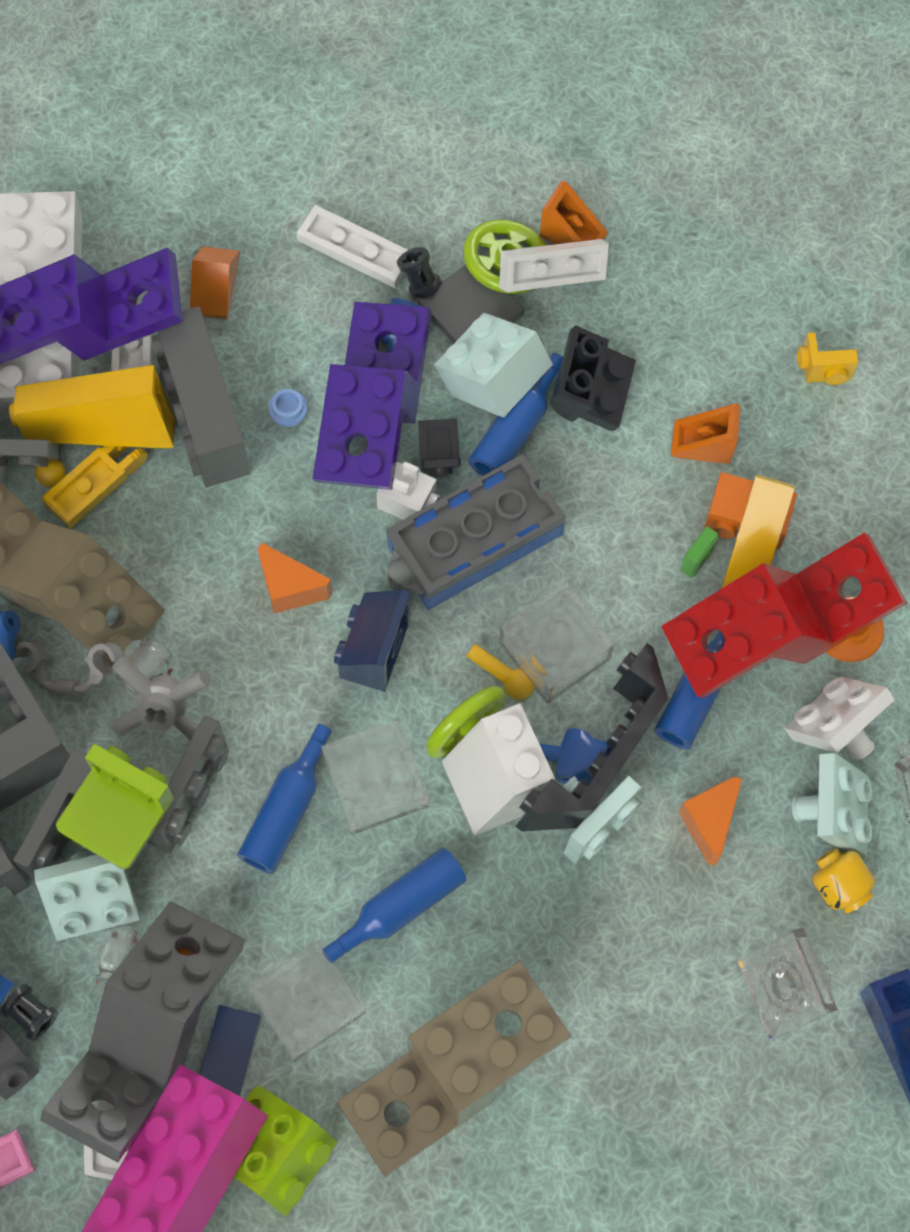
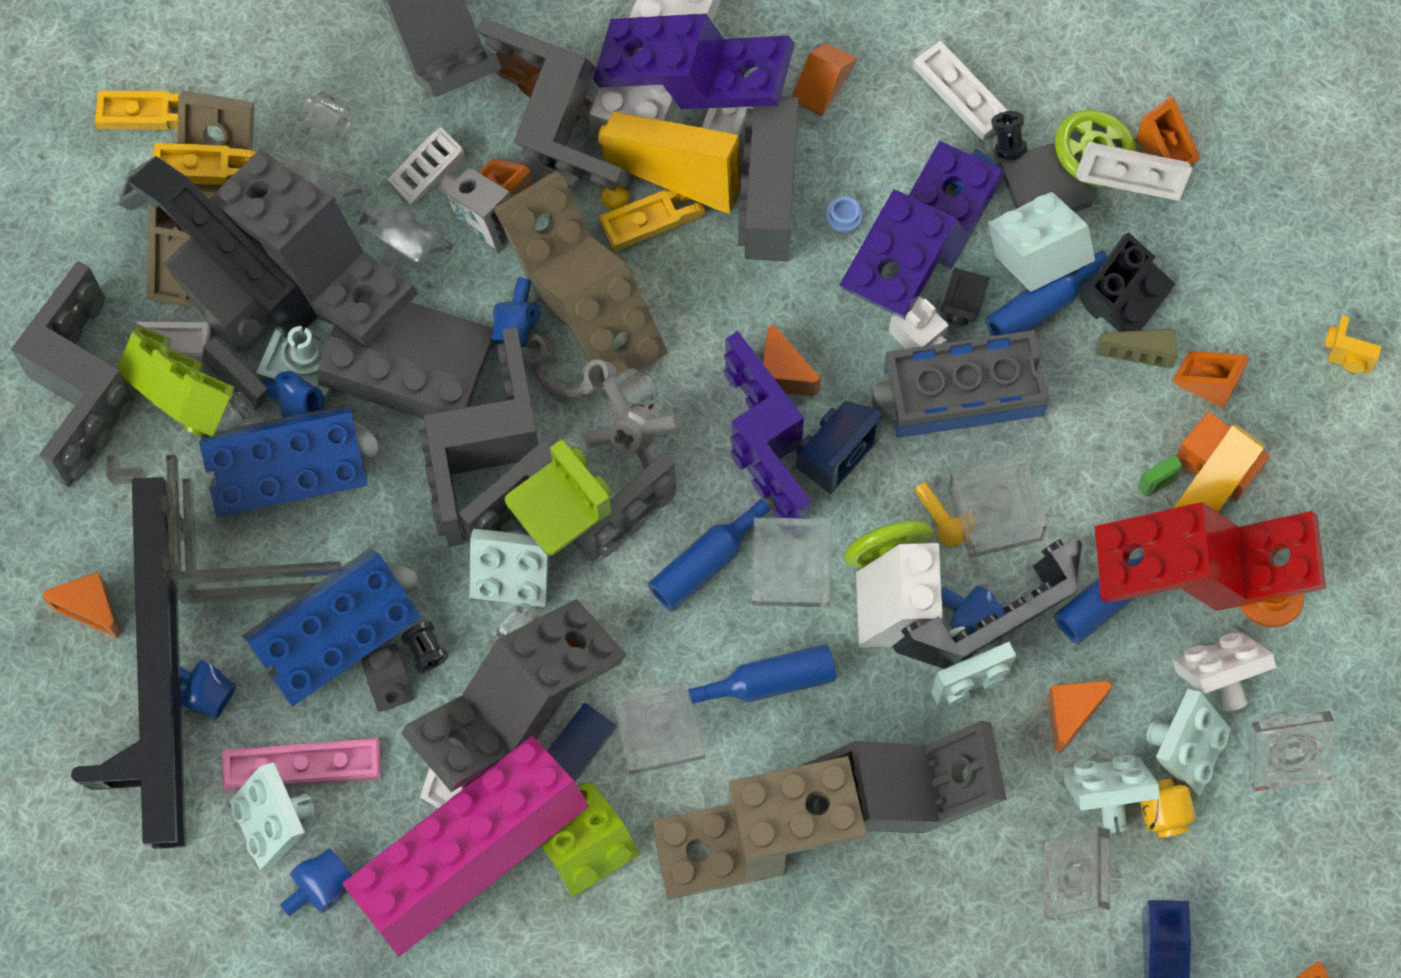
camera: 25 degrees right, 0 degrees up
(297, 654) = (765, 431): none -> dark purple bracket
(595, 954) = (921, 785): none -> dark grey bracket
(633, 431) = (1144, 346): none -> olive slope
(782, 881) = (1111, 787): none -> light aqua plate

